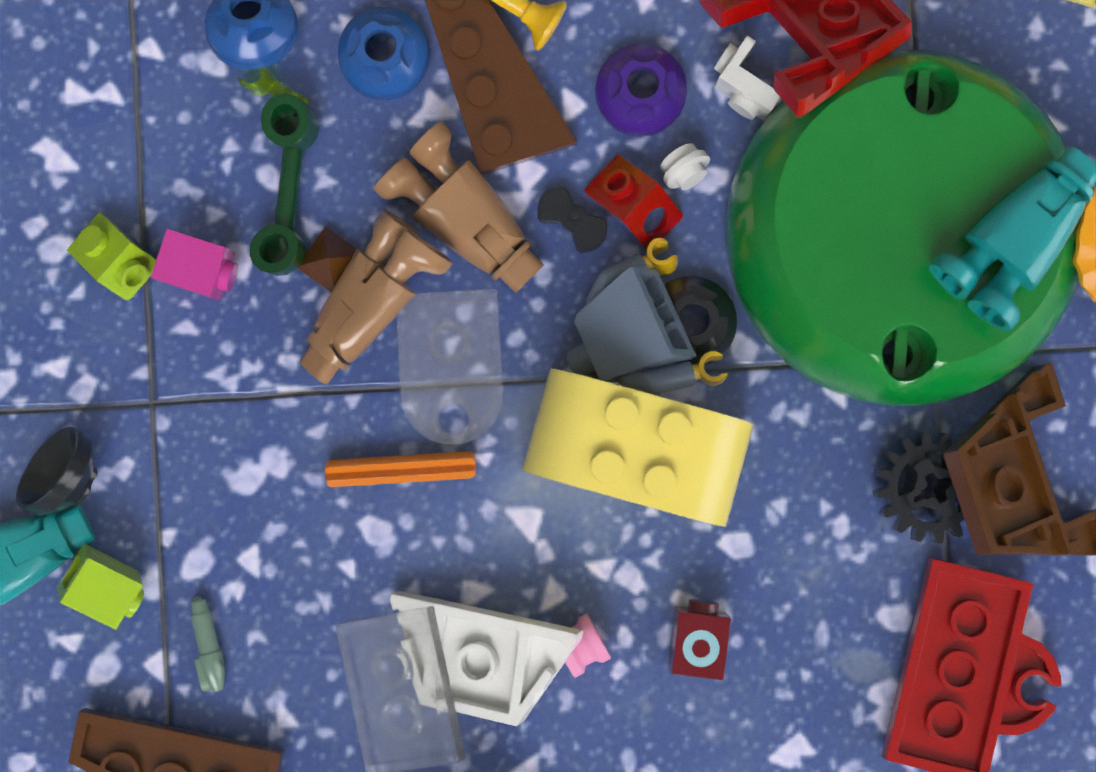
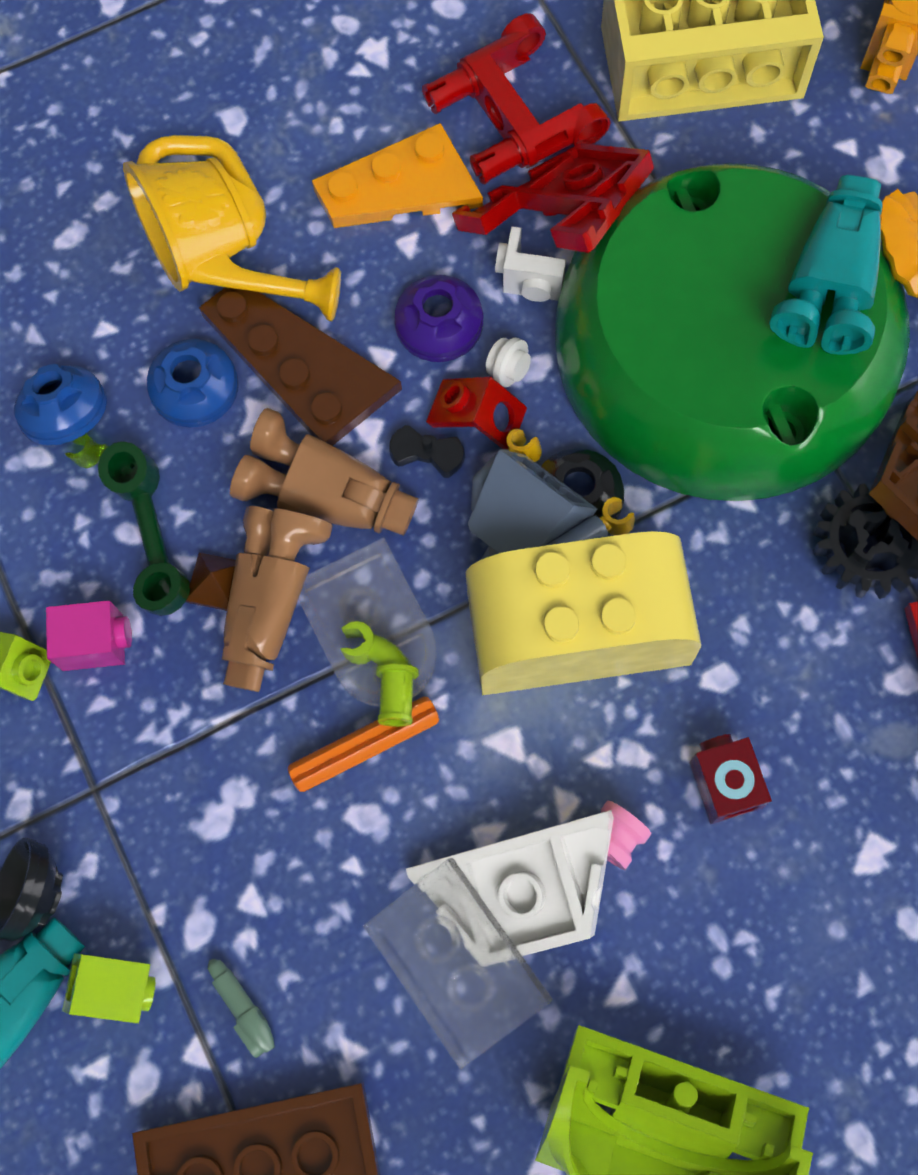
camera: 25 degrees left, 15 degrees down
(452, 423) = (392, 668): none -> lime piece

